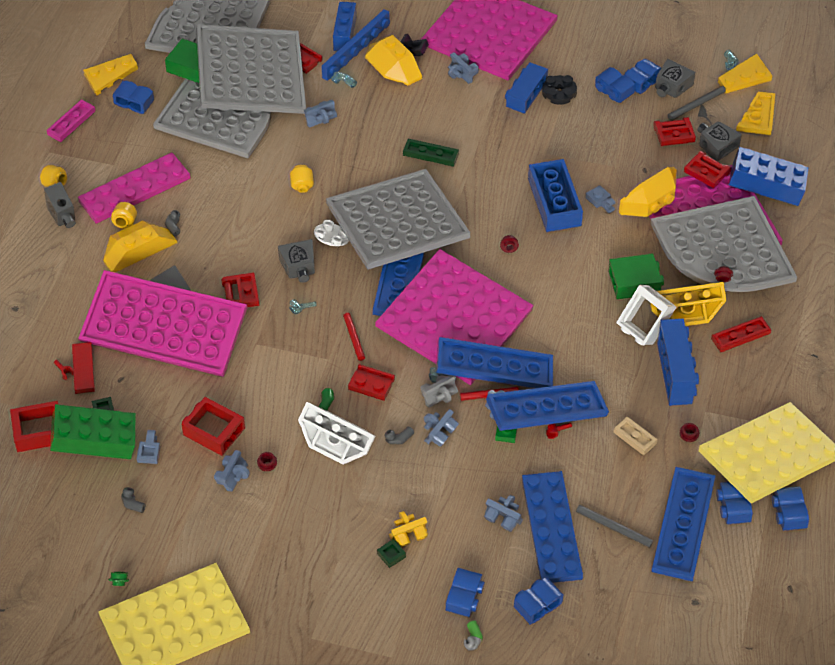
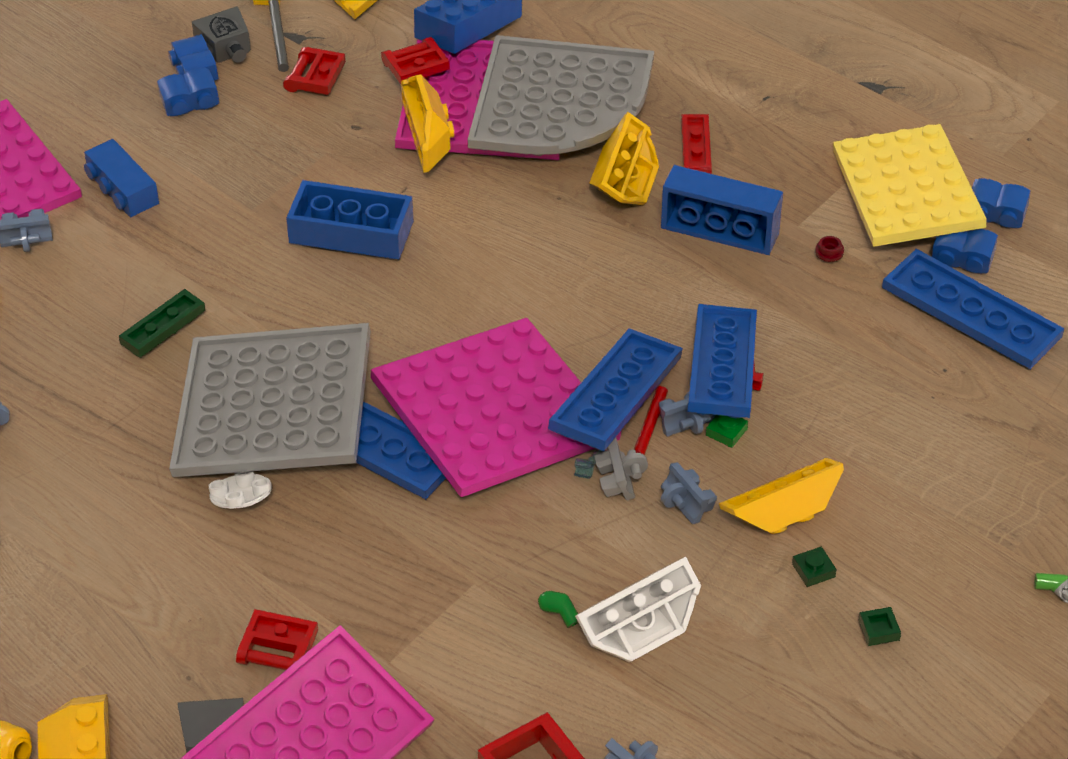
camera: 65 degrees left, 5 degrees down
(172, 221) = (63, 687): dark grey arm -> none
(266, 457) = (636, 713): dark red plate -> none
(296, 307) = (352, 583): clear light blue hand -> none
(297, 259) = (265, 547): dark grey torso -> none
(301, 178) = (102, 486): yellow head -> none
(354, 337) = (453, 535): red bar -> none
(371, 382) = (553, 545): red plate -> none
(400, 533) = (845, 590): yellow hips -> none
(401, 438) = (676, 546): dark grey arm -> none
(422, 508) = (814, 566): none -> dark green plate
(454, 471) = (788, 498): none -> yellow wedge
(464, 592) = (985, 567): blue brick -> none
(495, 509) = (861, 483): sand blue hips -> none
(509, 240) = (399, 301): dark red plate -> none
(538, 600) = (1032, 494): blue brick -> none
(552, 527) = (912, 440): blue plate -> none
(553, 83) = (157, 143): black plate -> none
(600, 197) = (384, 183): sand blue plate -> none
(614, 526) = (940, 377): dark grey bar -> none
(632, 271) = (543, 200): green brick -> none
(635, 436) = (809, 300): tan plate -> none
(645, 292) = (654, 199): white window -> none
(718, 139) = (362, 36): dark grey torso -> none
(723, 274) = (616, 105): dark red plate -> none

